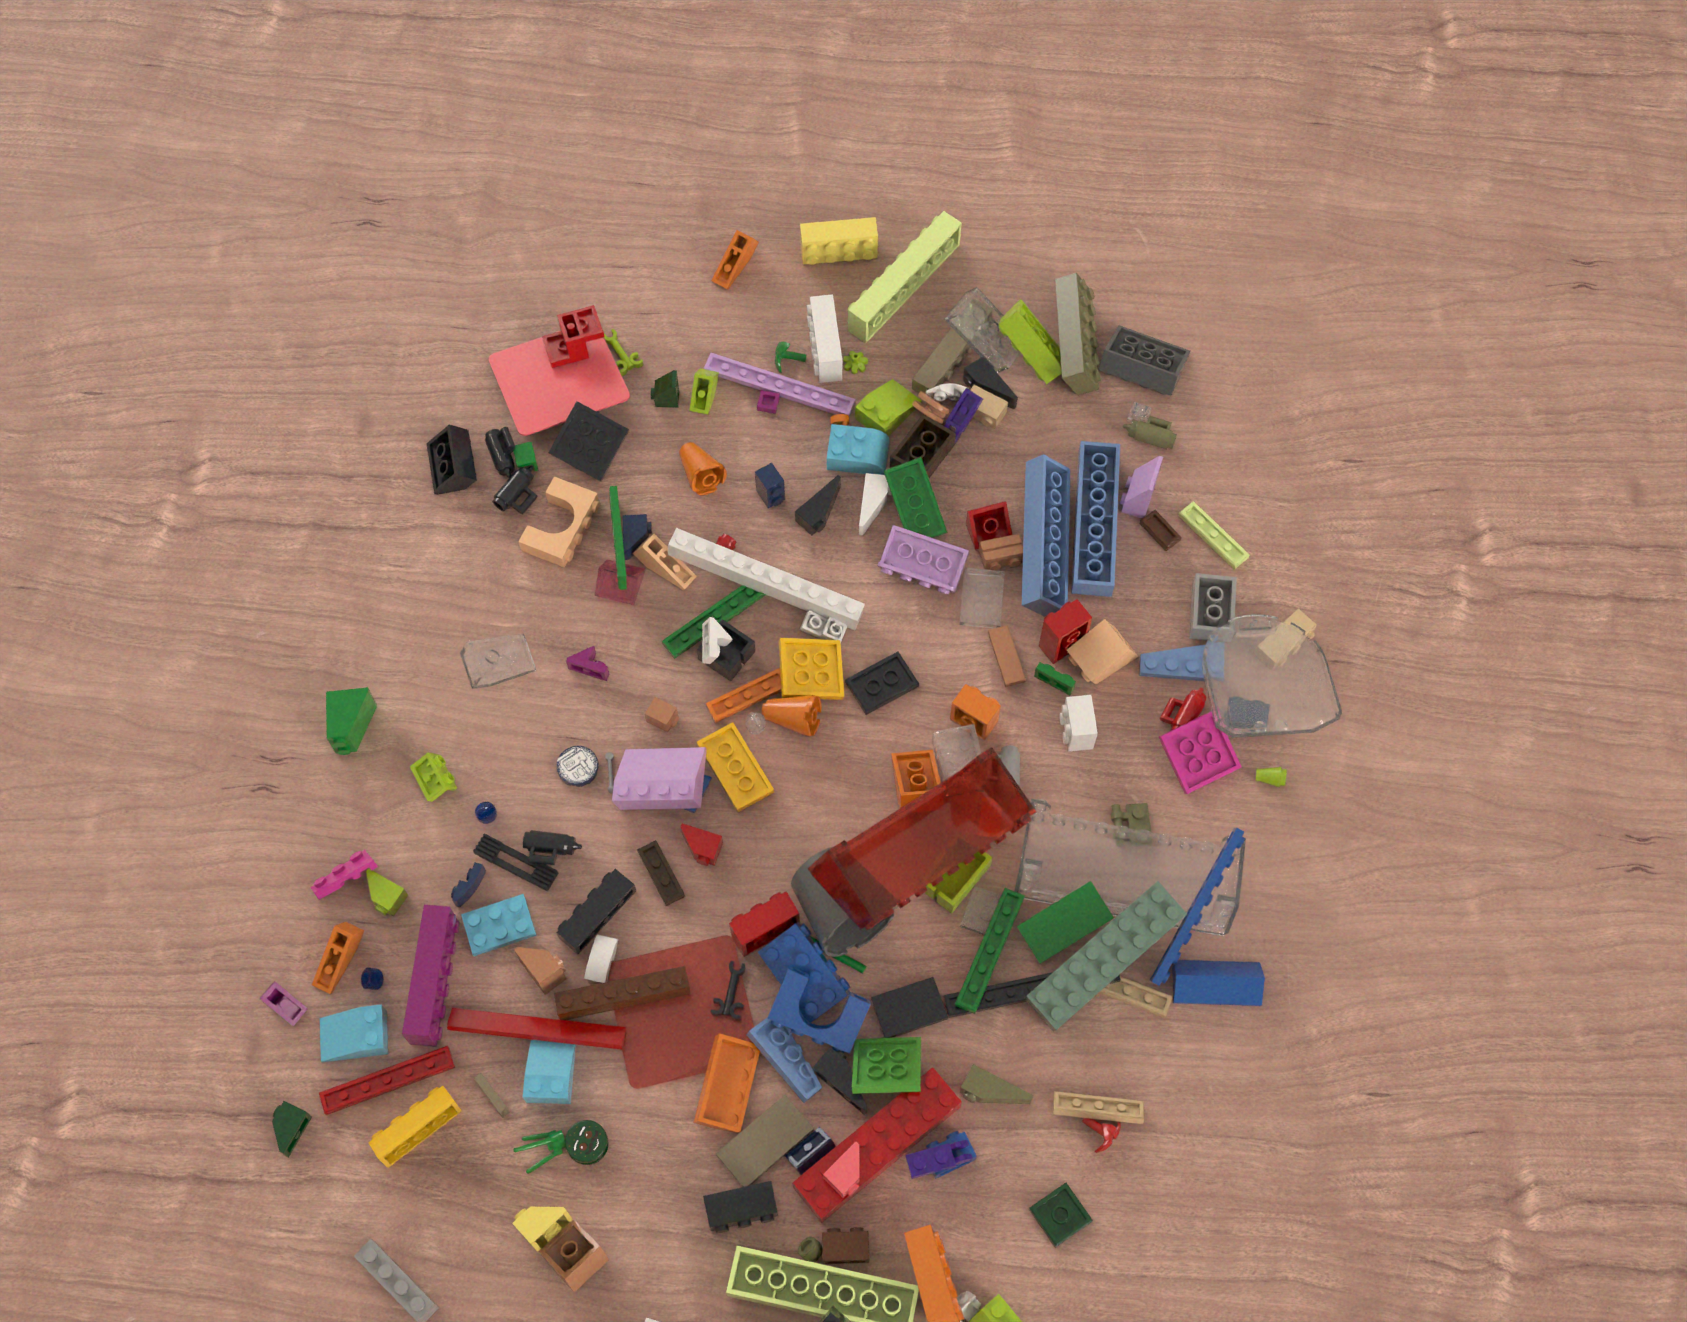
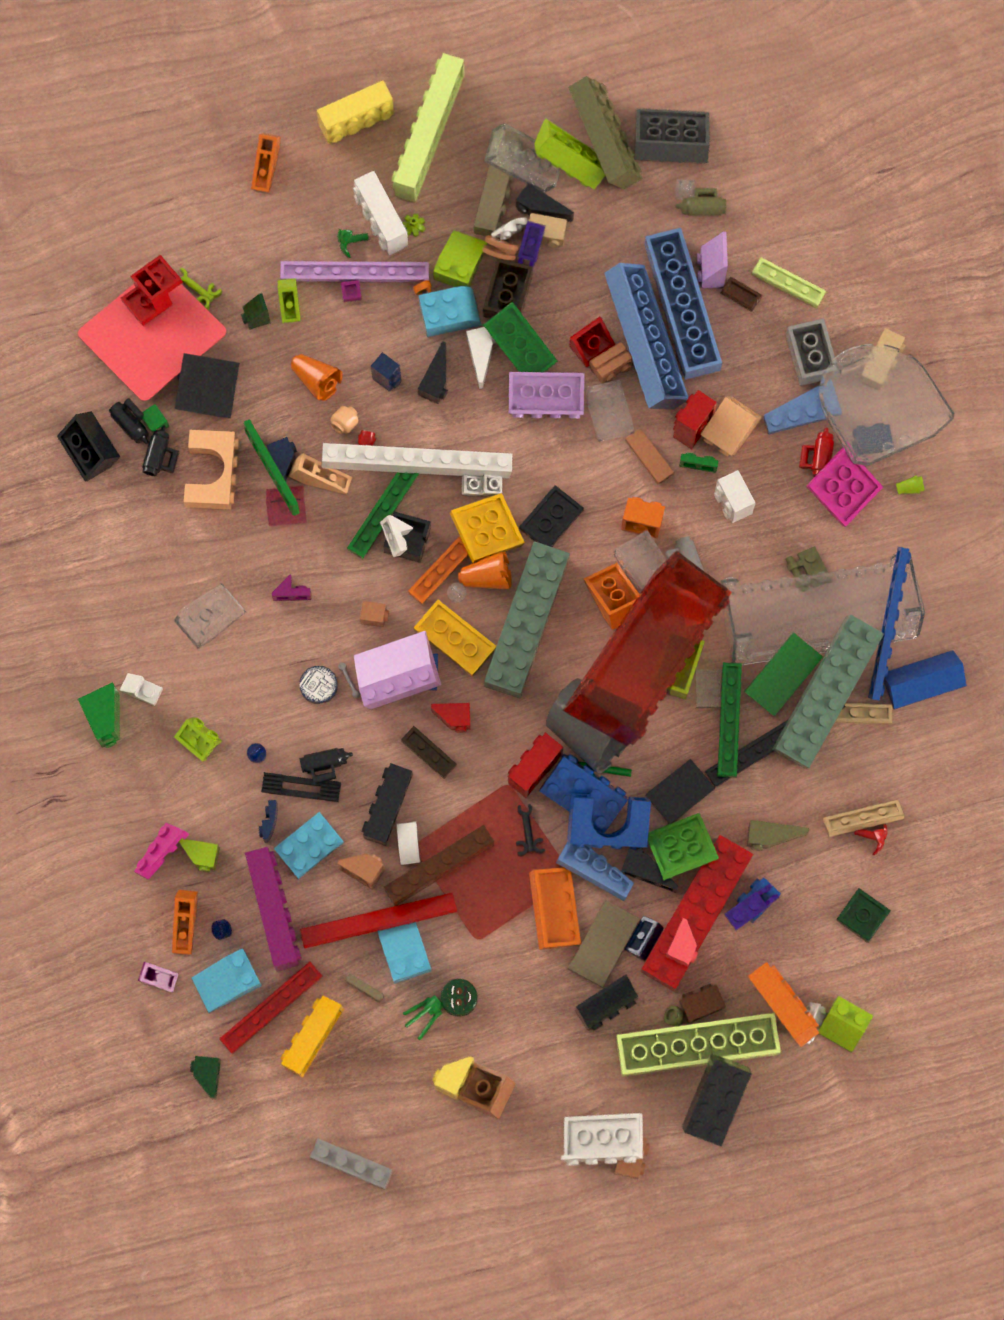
camera: 20 degrees left, 10 degrees up
(399, 709) = (141, 689): none -> white slope
(711, 518) = (344, 419): none -> light nougat head
(815, 774) = (527, 620): none -> sand green brick

